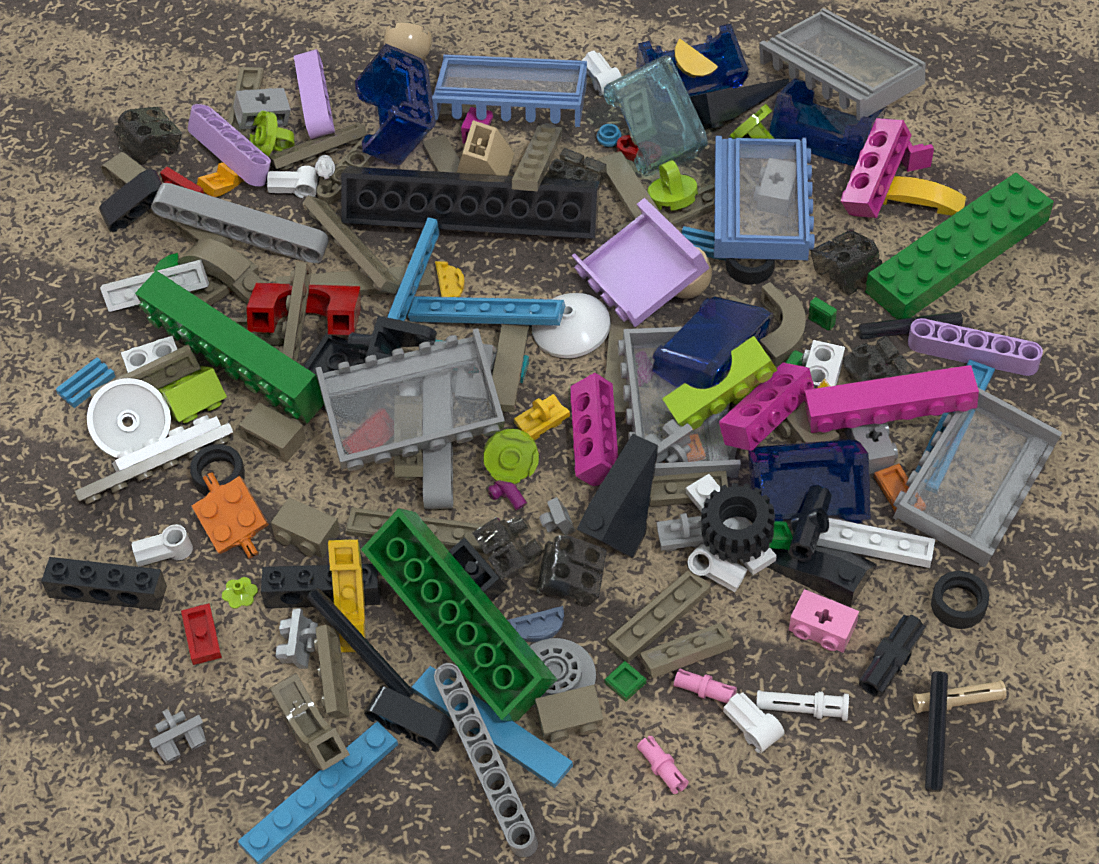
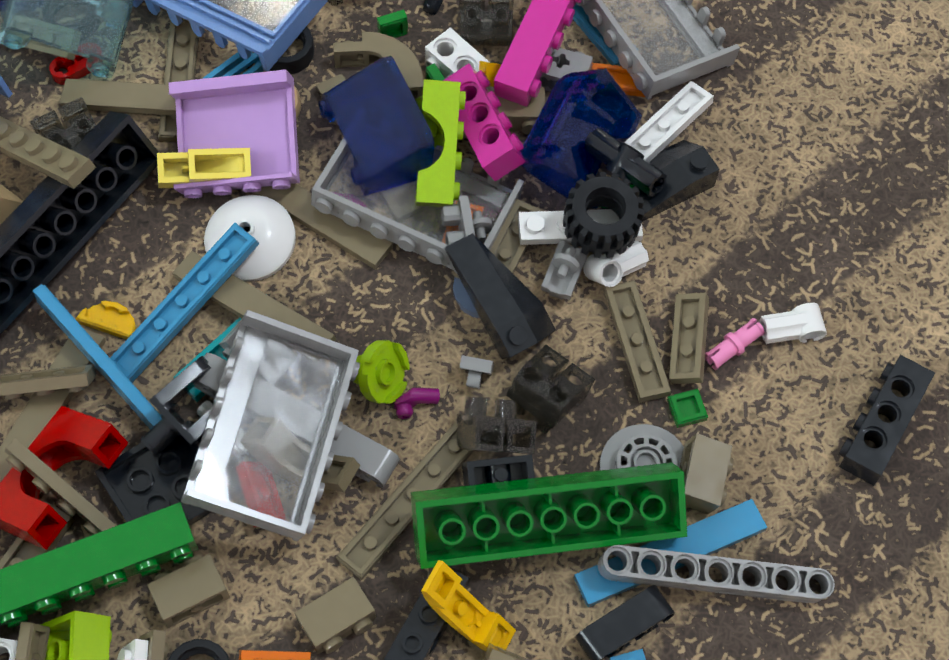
camera: 65 degrees left, 10 degrees up
(358, 642) = (518, 629): black axle -> none
(539, 625) = (583, 450): sand blue tile -> none
(542, 416) = (351, 320): yellow hips -> none
(593, 428) = (443, 293): dark pink brick -> none
(599, 259) = (202, 165): none -> light yellow slope
(608, 135) = (32, 72): dark azure plate -> none
(662, 764) = (795, 423): bright pink pin -> none
(672, 188) = (154, 59): lime tile -> none
(725, 842) = (912, 382): none -> black brick
(766, 700) = (802, 265): white pin -> none
(837, 619) = (723, 212): bright pink brick -> none
(892, 655) = (787, 180): black piece -> none
(936, 731) = (882, 189): black axle -> none
(956, 618) = (757, 117): black tyre -> none
(964, 696) = (850, 164): tan pin -> none

